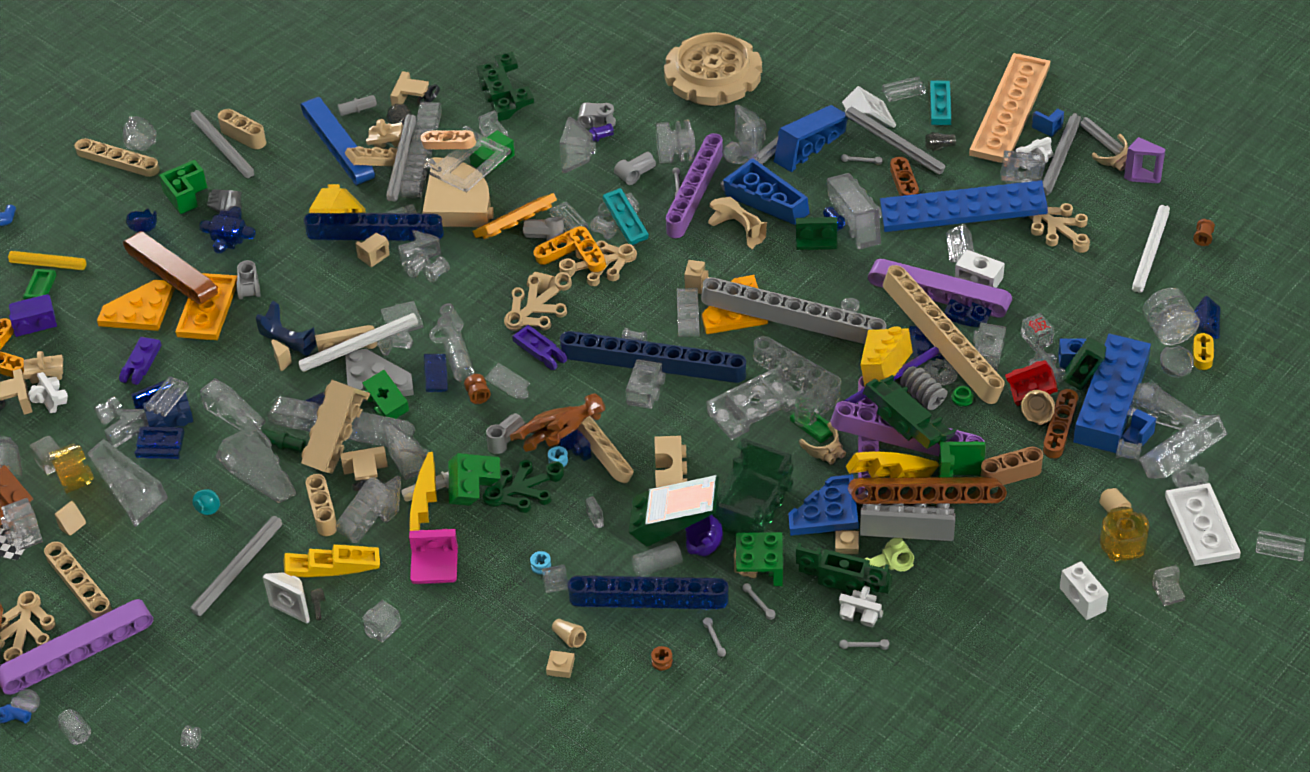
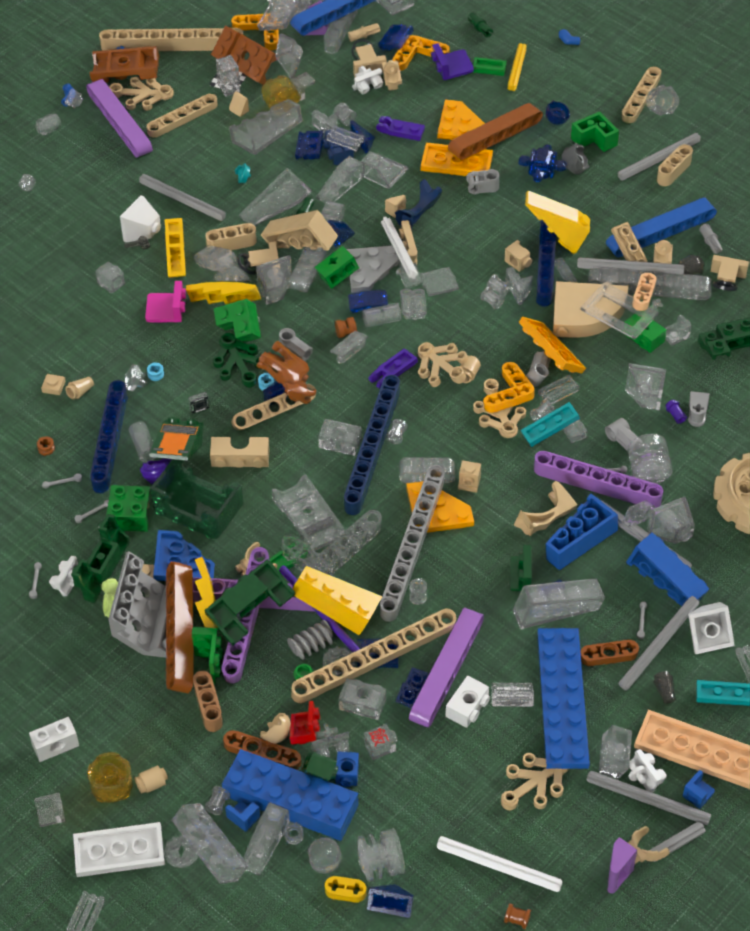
camera: 90 degrees right, 5 degrees up
(211, 367) = (382, 169): none -> clear slope

